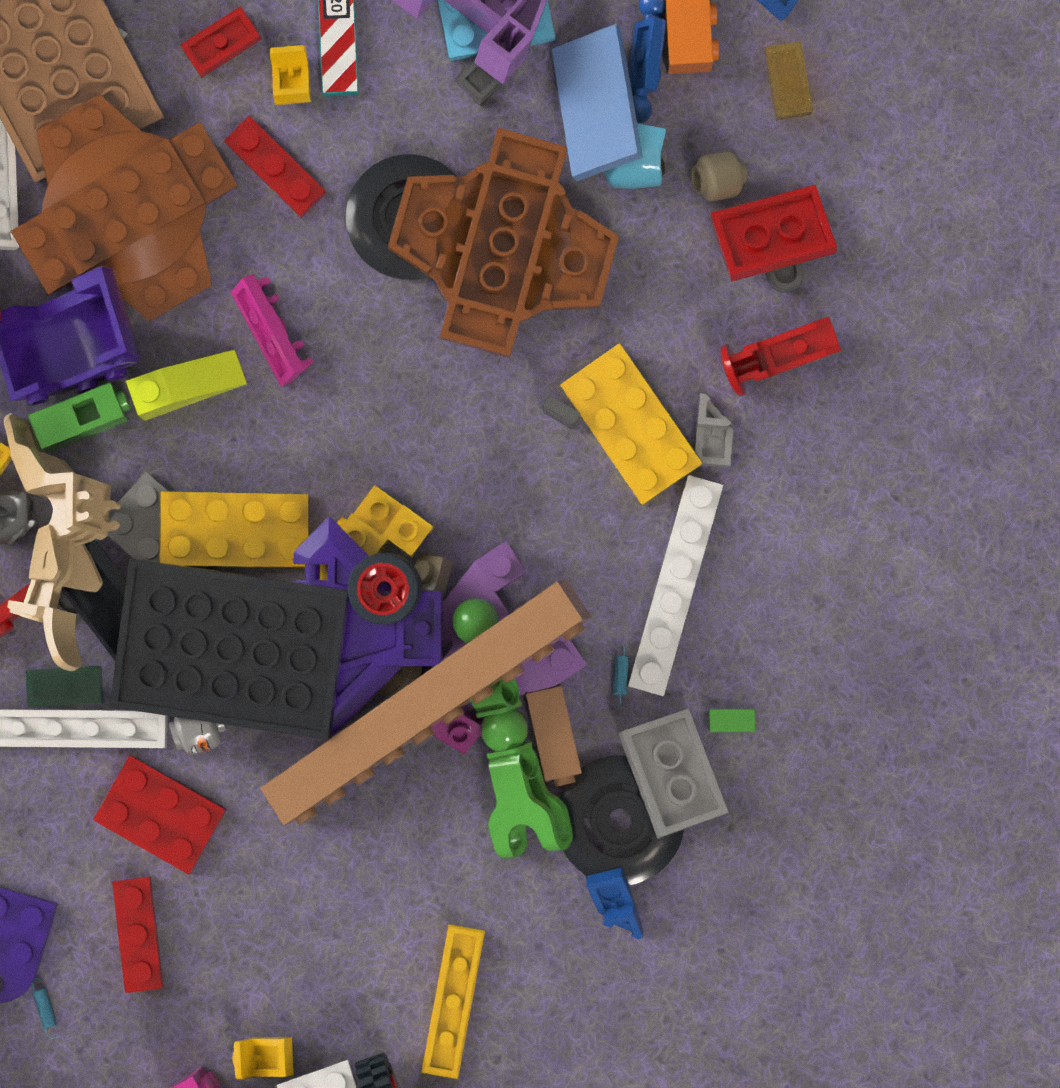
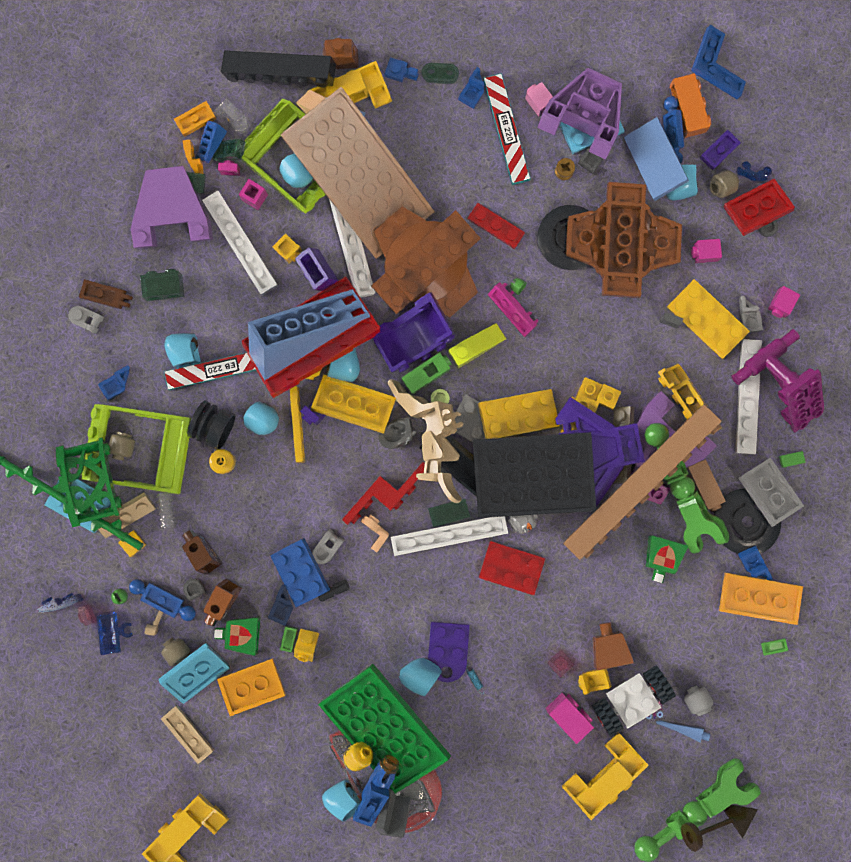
camera: 10 degrees left, 0 degrees up
(98, 466) = (440, 395): none -> yellowish green tile
(137, 934) = (514, 631): red plate -> none
(210, 1011) = (560, 663): none -> clear pink plate
(220, 42) = (455, 167): red plate -> none
(287, 286) = (518, 286): none -> bright green hinge
(290, 75) = (494, 177): yellow bracket -> none
(307, 1004) = (610, 648): none -> dark orange torso
(371, 574) = (612, 417): wheel -> none
(430, 93) = (567, 171): none -> pearl gold wheel
(445, 853) = (664, 556): none -> green torso
(453, 1001) = (683, 632): yellow tile -> none
(555, 554) = (683, 389): none -> yellow bracket
(611, 969) = (761, 598): none -> light orange plate
(618, 1065) = (774, 646): none -> bright green piece
(621, 675) = (730, 448): medium azure piece -> none
(656, 295) = (706, 251): none -> dark pink brick
(726, 110) = (720, 149): none -> dark purple plate
(760, 598) = (799, 392): none -> magenta plate
(779, 353) = (776, 267): red piece -> none
(779, 422) = (783, 302): none -> dark pink brick
(788, 80) = (748, 128): clear yellow plate -> none
(790, 174) = (761, 175): none -> clear blue piece

